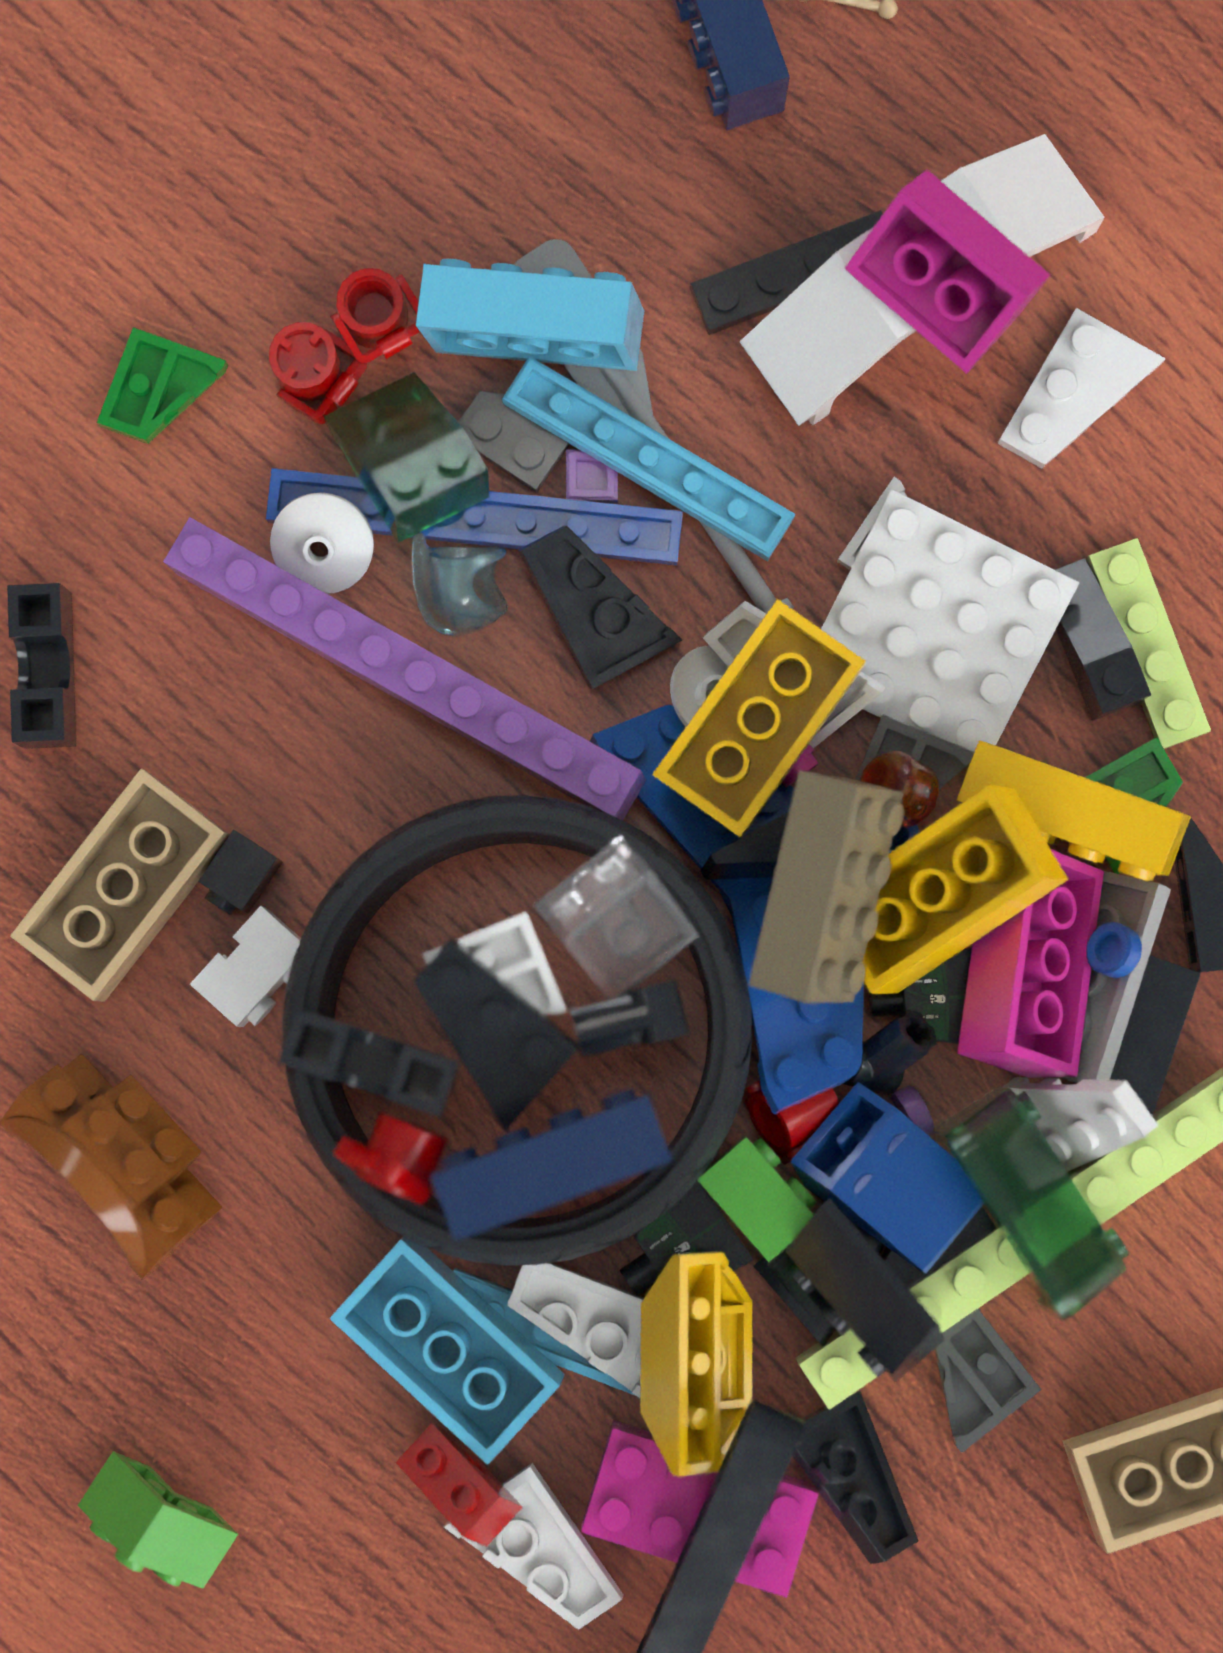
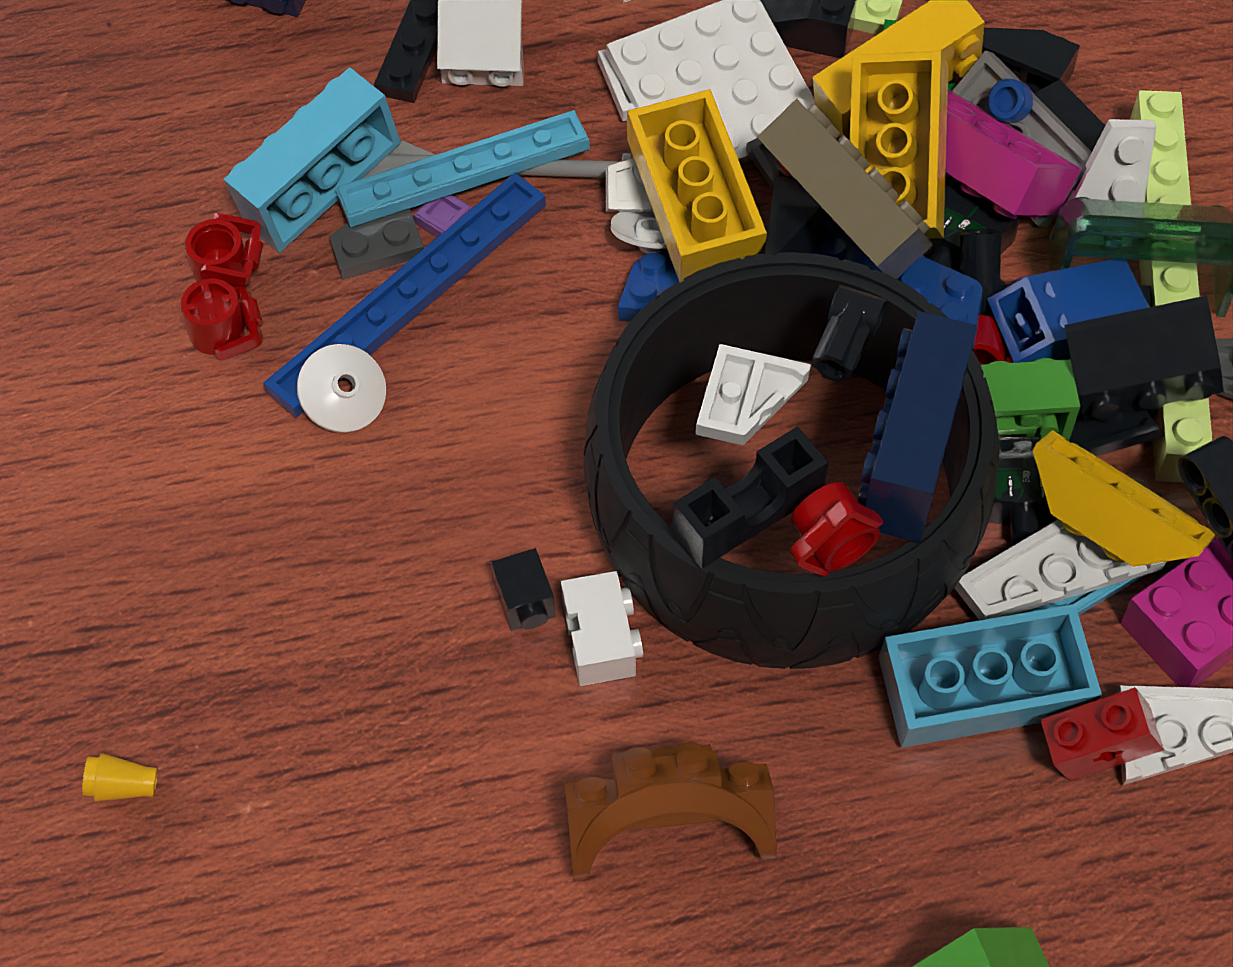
camera: 55 degrees left, 25 degrees down
(45, 693) = (285, 631): black arch -> none
(120, 886) = (467, 668): tan brick -> none
(155, 385) = (138, 418): green wing -> none
(405, 670) = (453, 389): medium lavender brick -> none
(410, 456) = (336, 290): clear green slope -> none
(448, 585) = (444, 330): clear light blue piece -> none
(494, 1029) = (770, 406): black wing -> none
(593, 609) = (536, 261): black wing -> none
(616, 919) = (769, 293): clear slope -> none

